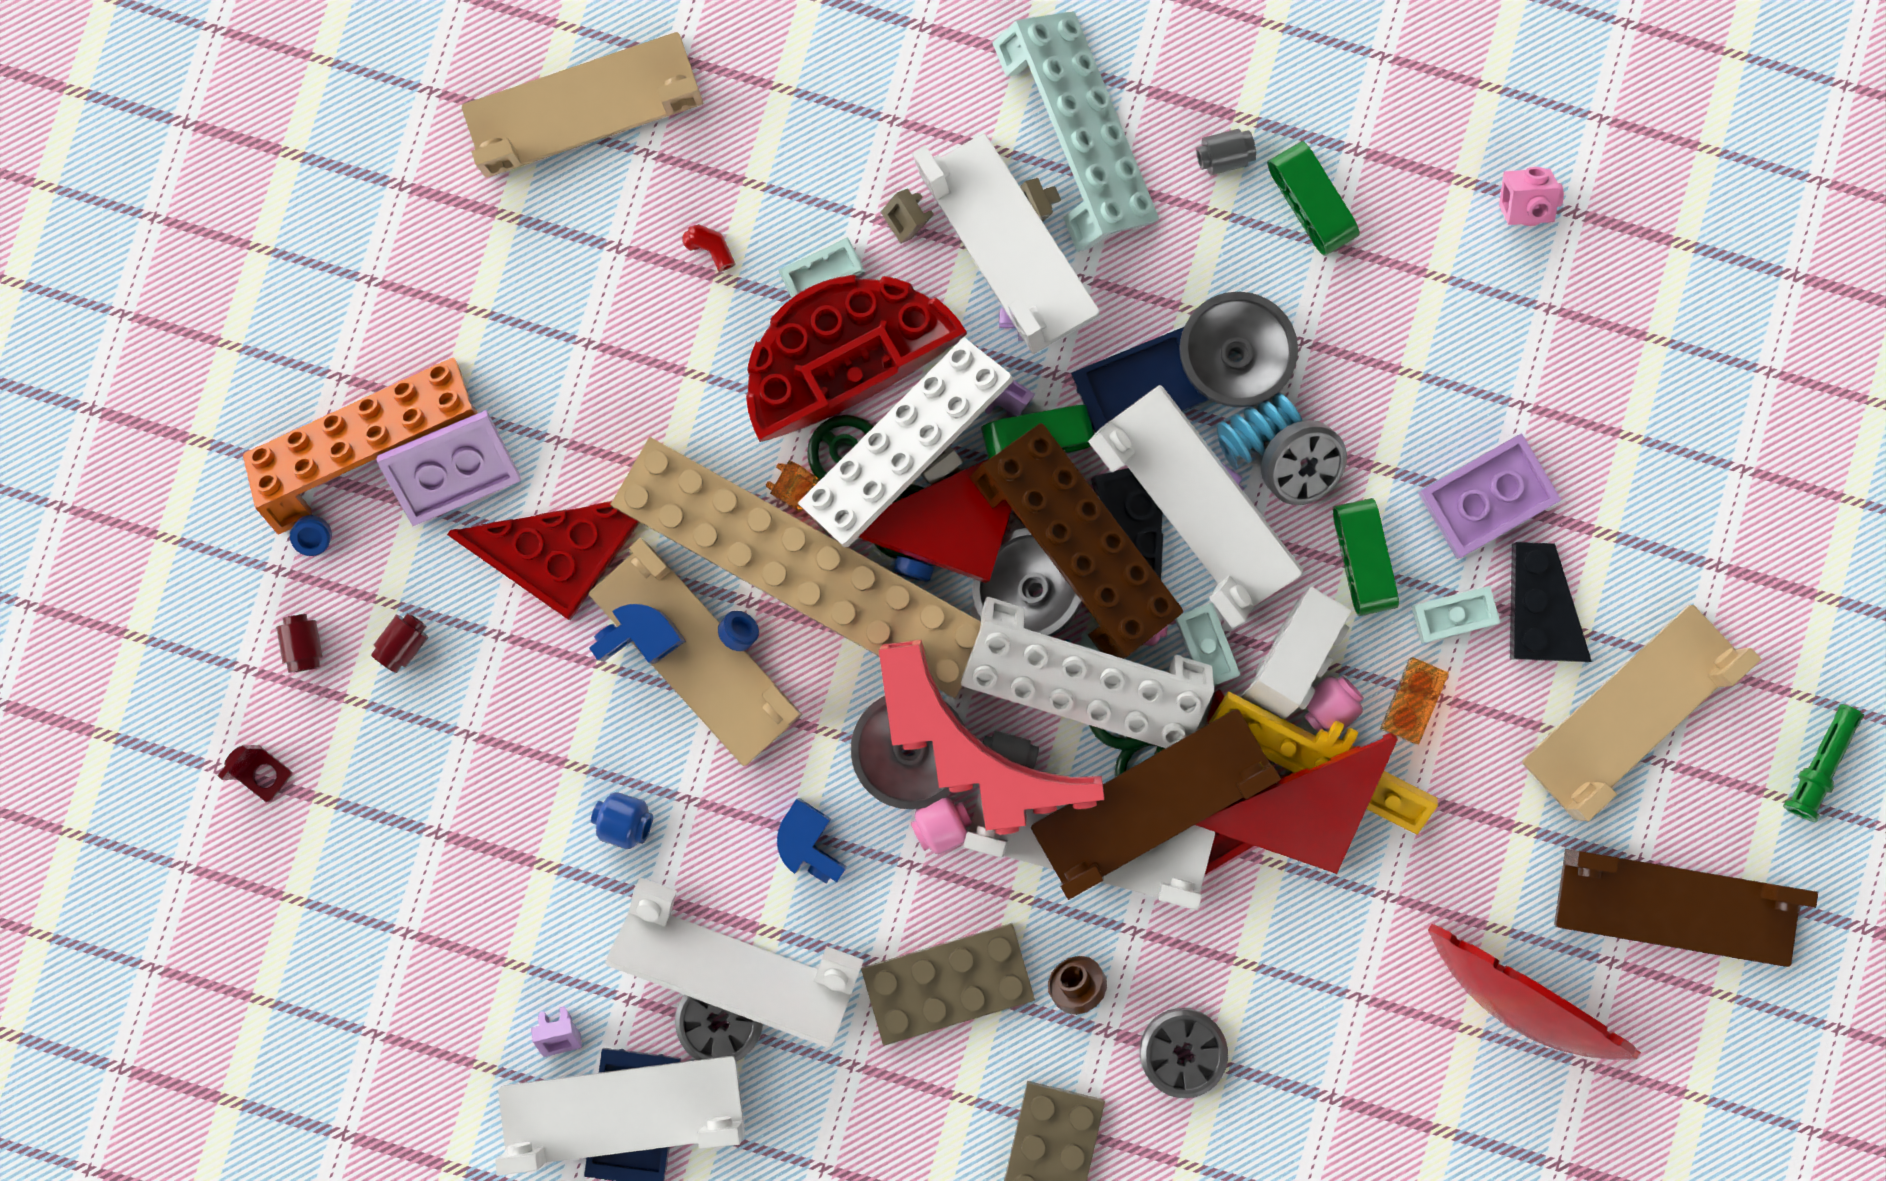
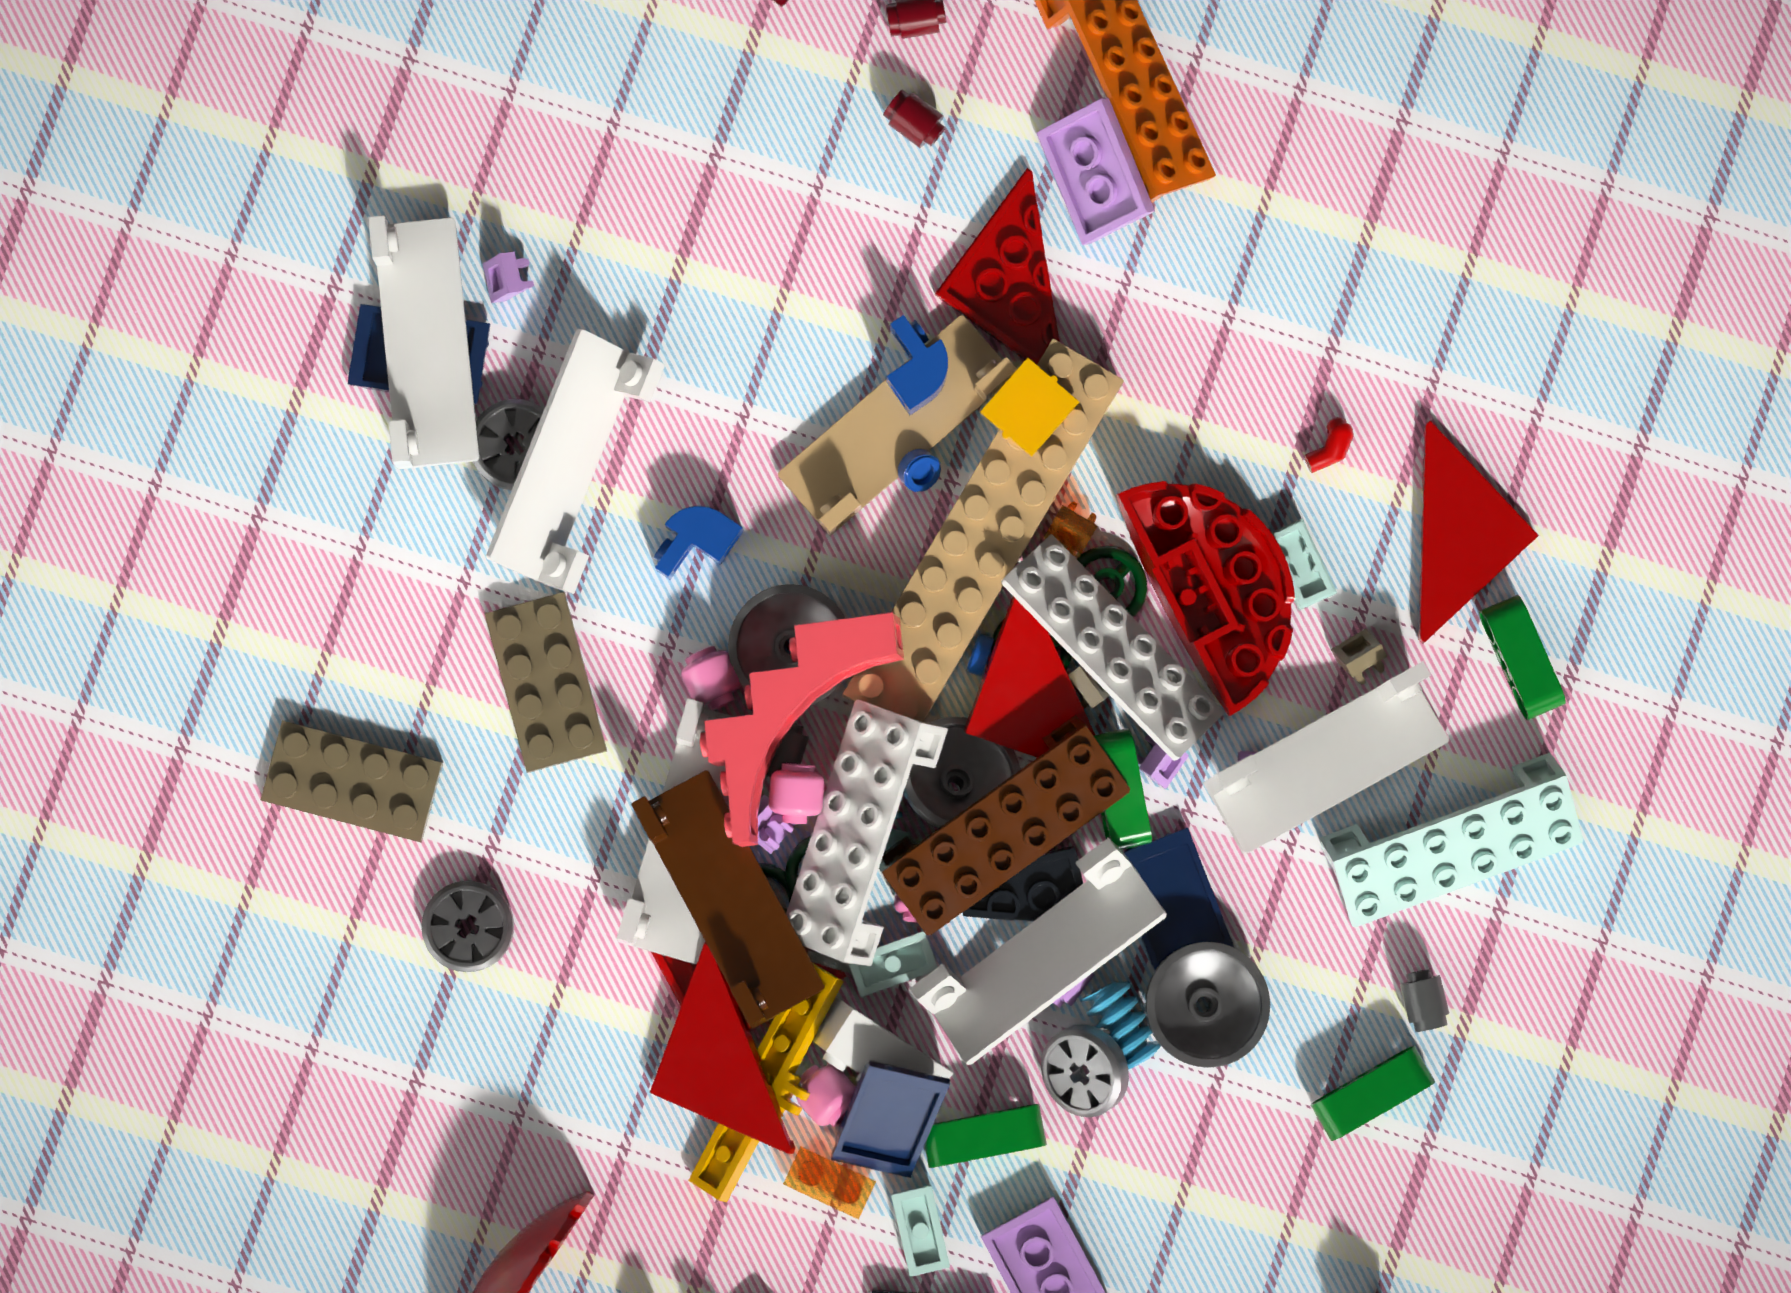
camera: 85 degrees right, 0 degrees up
(310, 535) = (1028, 27): blue tile -> none
(581, 105) = (1485, 313): tan bracket -> none
(622, 820) = (723, 347): blue head -> none
(676, 524) = (1029, 407): none -> yellow piece
(789, 121) = (1465, 532): none -> red tile
(904, 66) = (1522, 657): none -> green beam
(1039, 198) = (1373, 798): dark tan tile -> none
(1051, 740) = (796, 792): none -> bright pink head
(1077, 985) = (541, 816): reddish brown plate -> none
(1079, 762) = (770, 827): none -> lavender tile
(1356, 644) = (889, 1118): none -> dark blue piece

